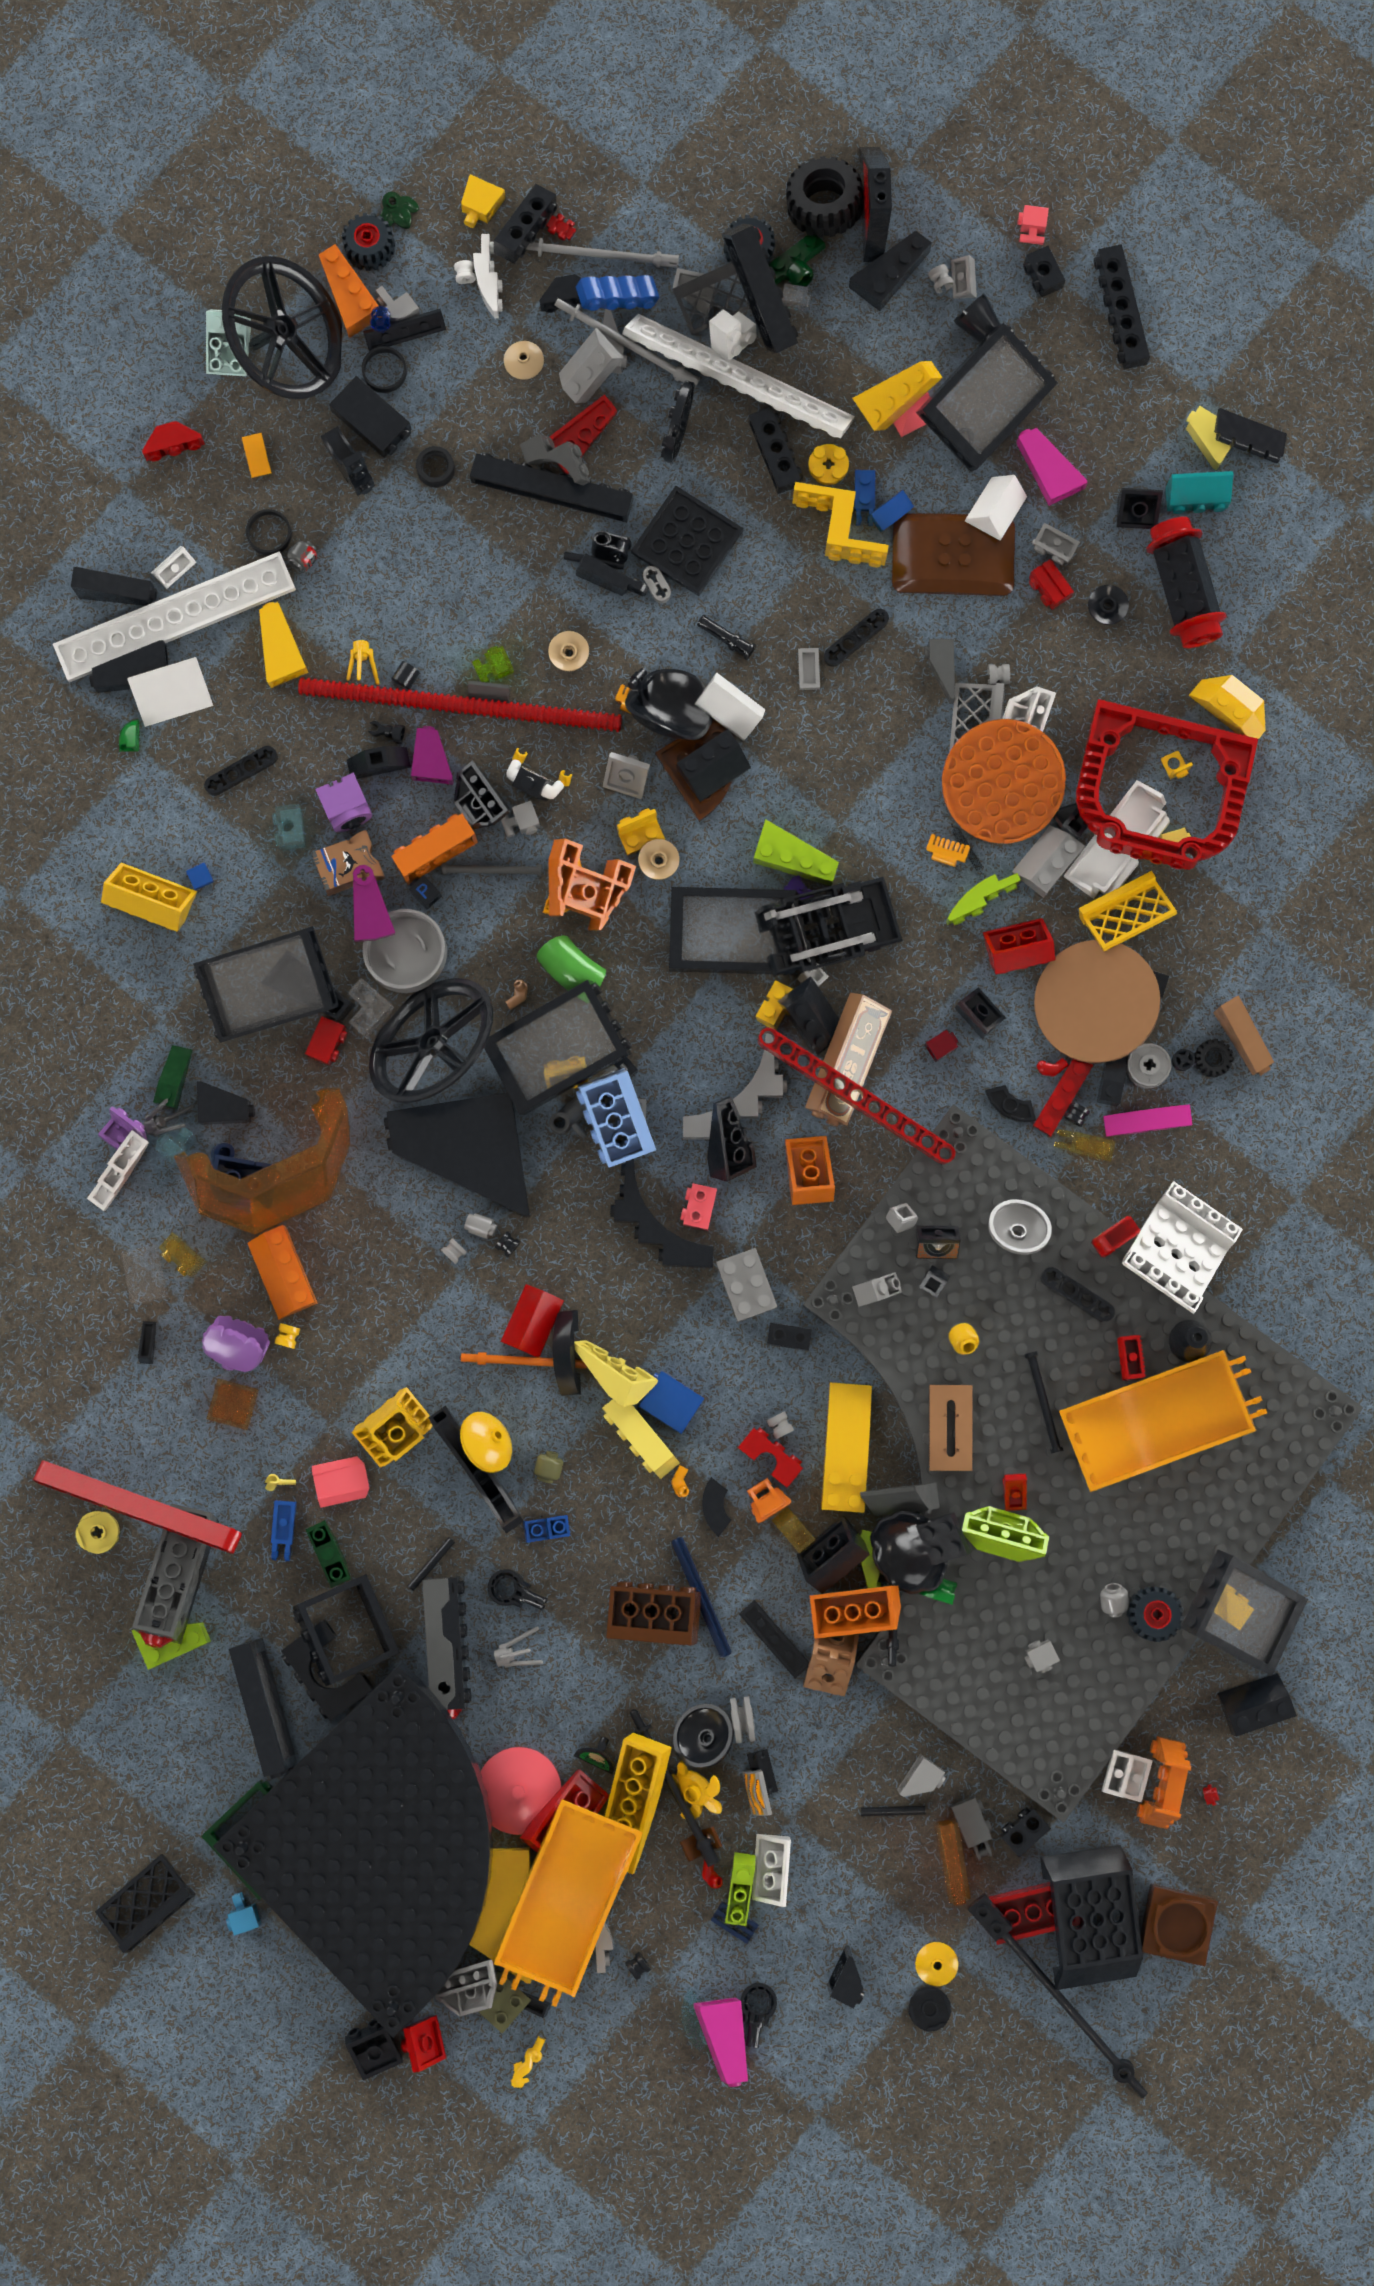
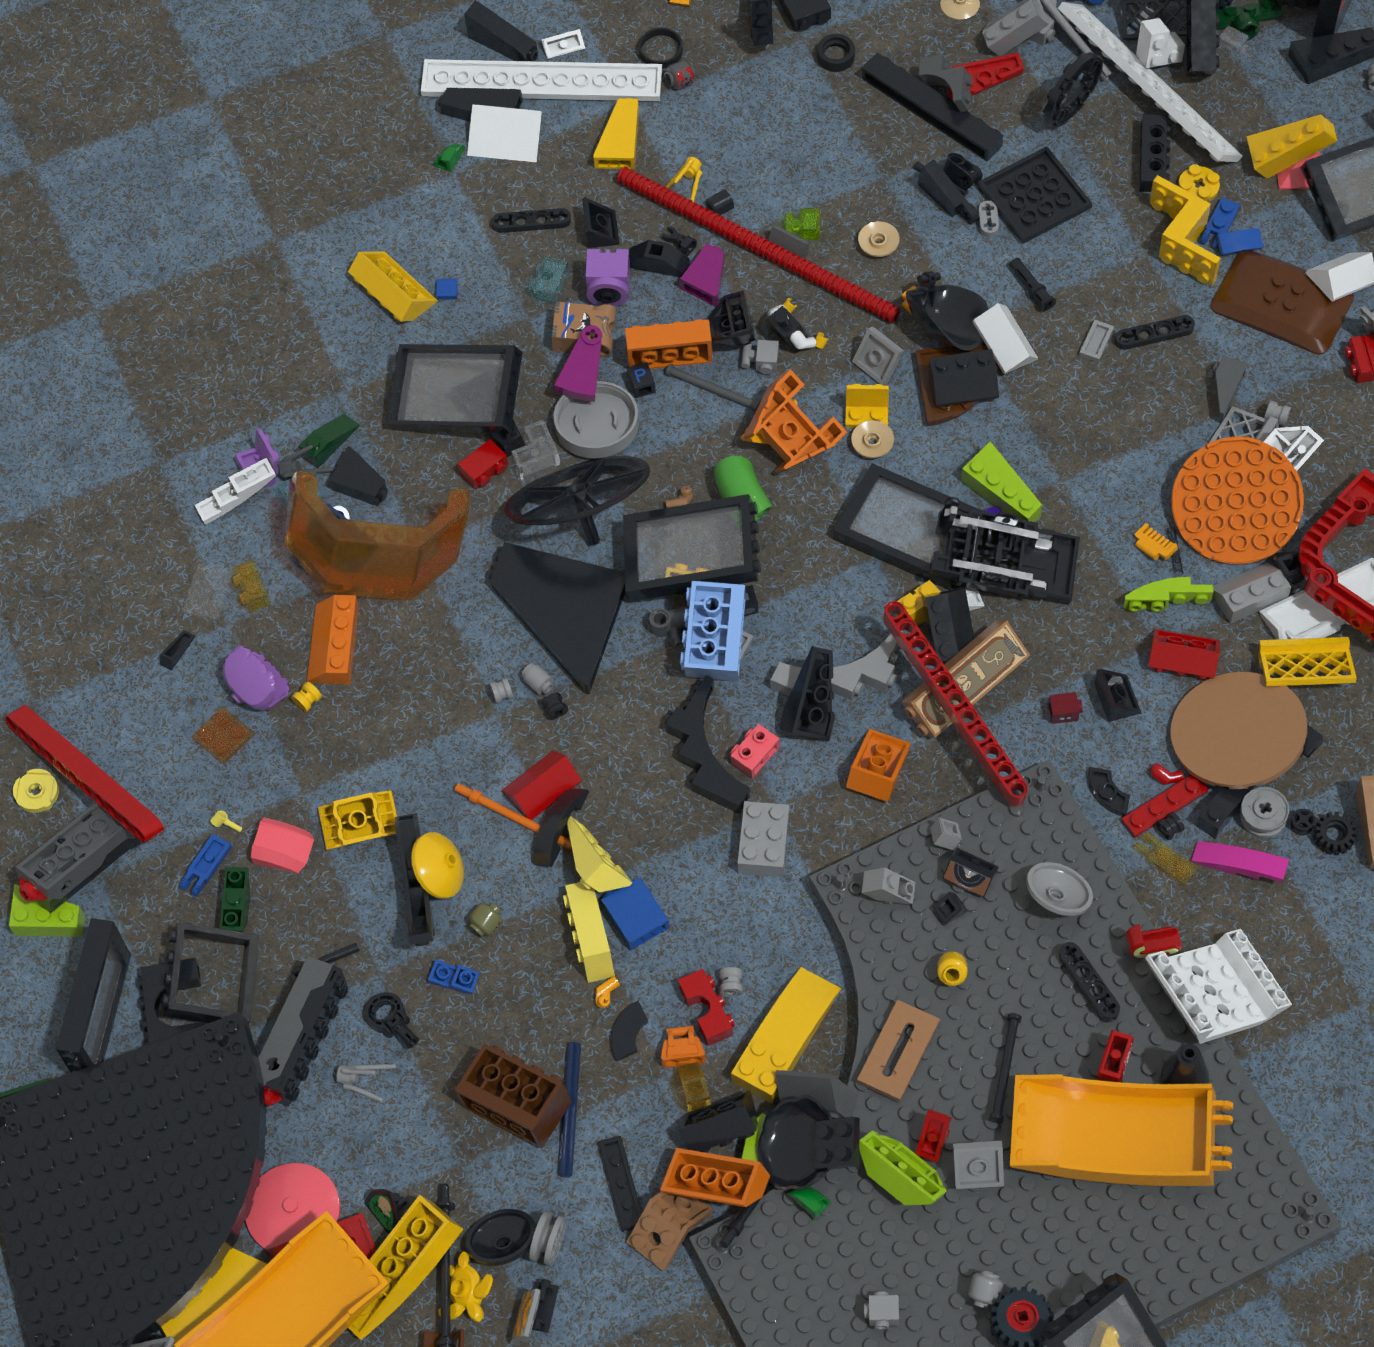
camera: 30 degrees right, 20 degrees down
(307, 748) = (600, 224): none -> black slope
(789, 1336) = (781, 903): black brick -> none
(1063, 1500) = (978, 1164): none -> light grey tile

